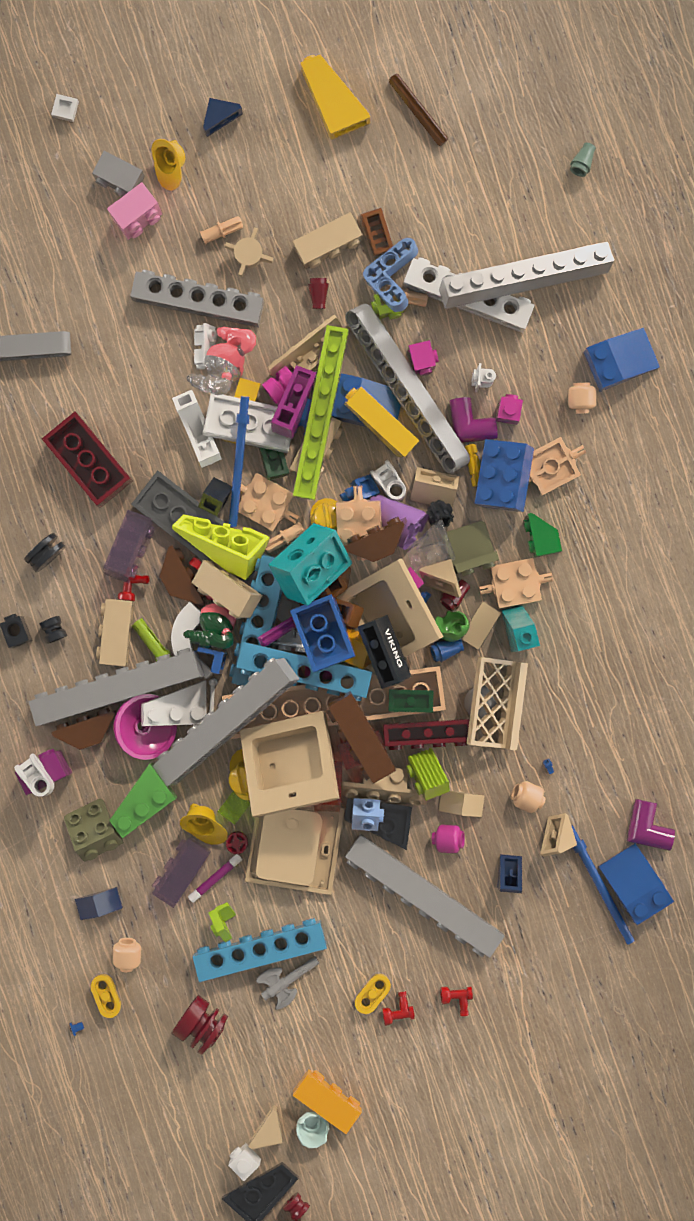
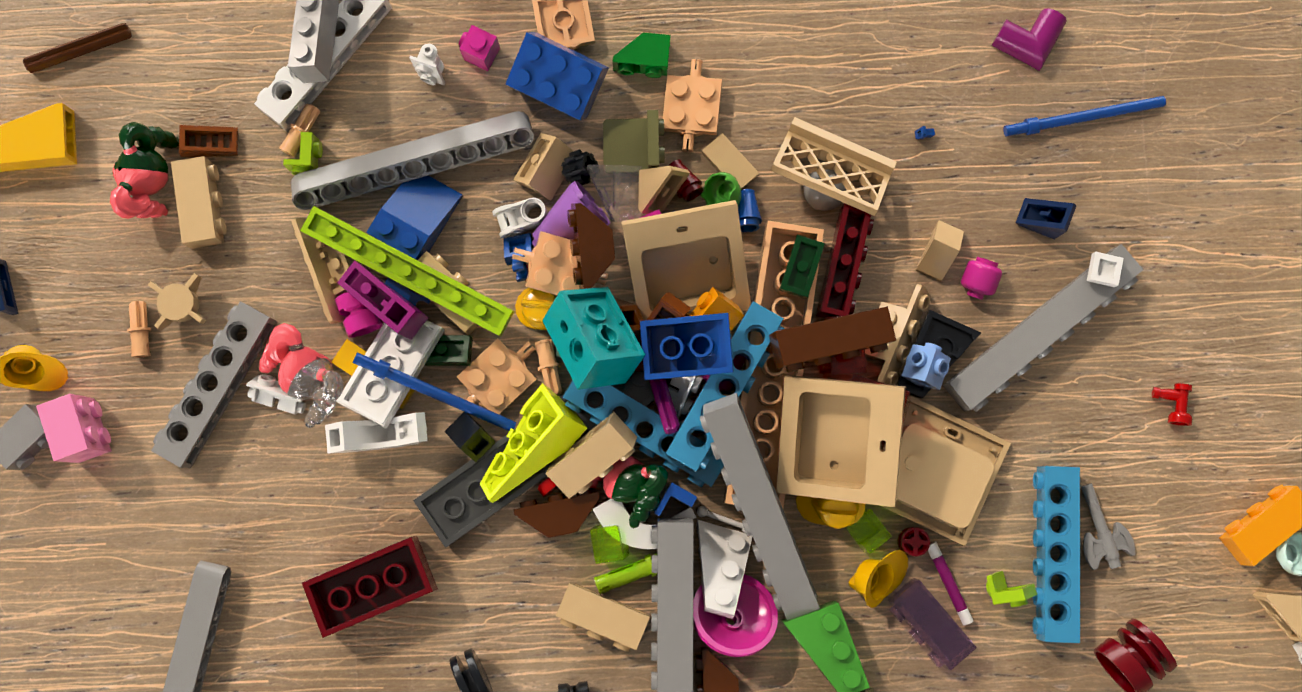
camera: 80 degrees left, 5 degrees down
(126, 594) = (539, 578): red piece -> none
(129, 546) = (498, 566): clear purple brick -> none
(167, 620) = (608, 544): none -> clear neon green panel
(318, 291) = (257, 233): dark red cone -> none
(337, 192) = (141, 171): none -> hair
(373, 993) = (1148, 426): yellow plate -> none
(380, 422) = (443, 200): yellow slope -> none
(383, 277) = (261, 152): medium blue beam -> none
(384, 651) = (731, 278): black brick -> none
(423, 357) = (380, 131): dark pink brick -> none
(428, 774) = (896, 277): lime brick -> none
(463, 996) = (1177, 317): red piece -> none
(466, 427) = (484, 105): magenta brick -> none
(474, 464) = (534, 111): yellow axle -> none
(479, 927) = (1105, 269): none -> white plate
(520, 629) = (753, 109): teal slope -> none
(528, 797) = (956, 167): light nougat head -> none
(558, 835) = (1014, 145): tan slope -> none
(636, 884) = (1098, 72): blue slope -> none

